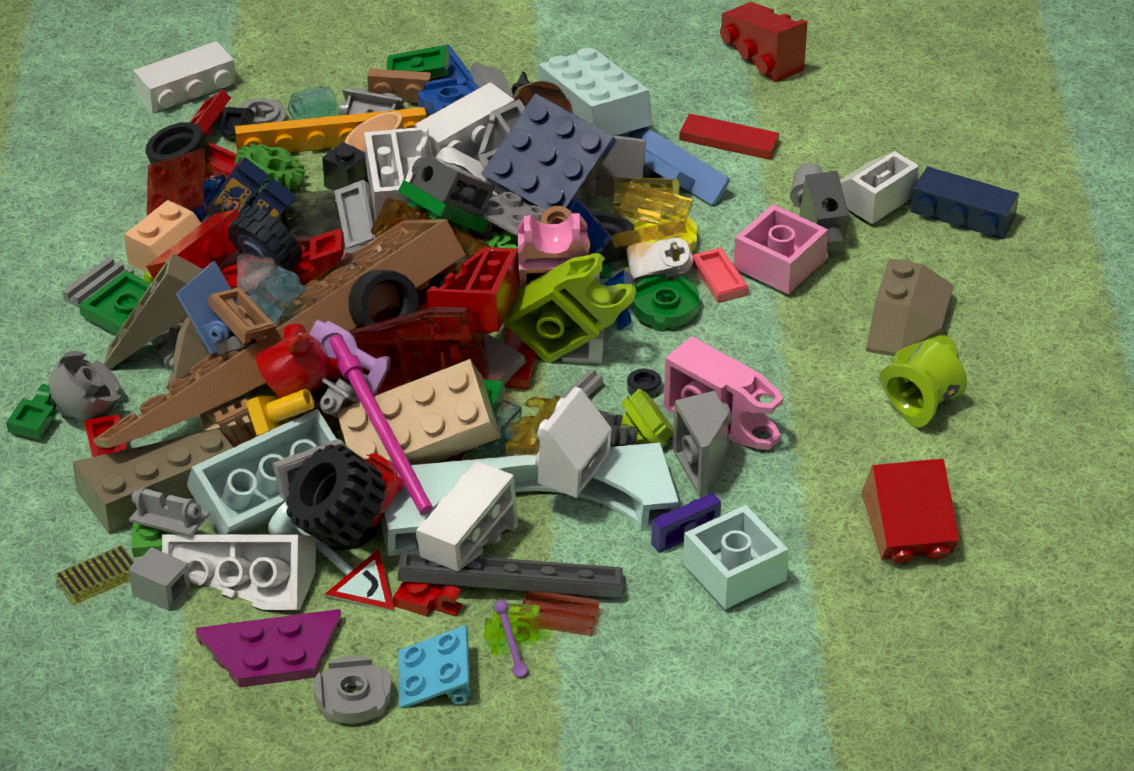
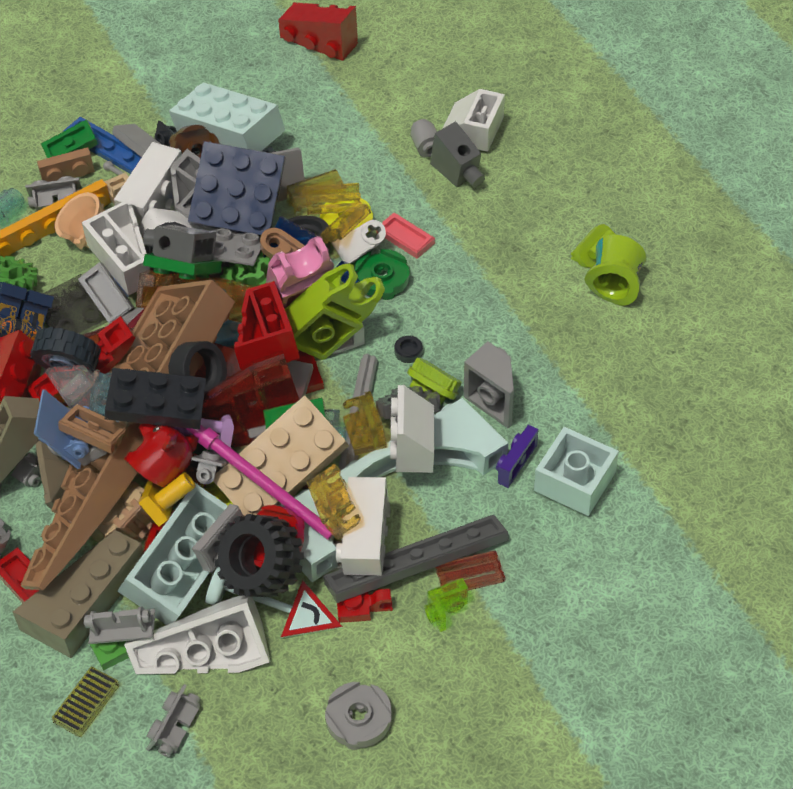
camera: 25 degrees left, 10 degrees up
(153, 628) = (178, 709): none -> light grey hinge
(159, 579) = (142, 684): light grey brick -> none
(271, 647) = (267, 705): magenta wing -> none
(315, 306) = (155, 398): none -> black plate
(344, 166) = (69, 255): black brick -> none
(435, 668) = (410, 666): medium azure hinge -> none
(437, 471) = (333, 501): none -> clear yellow hinge
(442, 93) = (114, 164): blue plate -> none
(519, 668) = (470, 635): medium lavender hinge -> none
(676, 163) = (325, 157): medium blue bracket -> none
(700, 369) = (464, 329): bright pink brick -> none
(729, 136) = (340, 117): red tile -> none
(780, 248) = (443, 198): bright pink brick -> none
(907, 307) = (559, 211): dark tan wedge -> none
(911, 510) = (673, 379): red slope -> none
(964, 202) = (544, 110): dark blue brick -> none

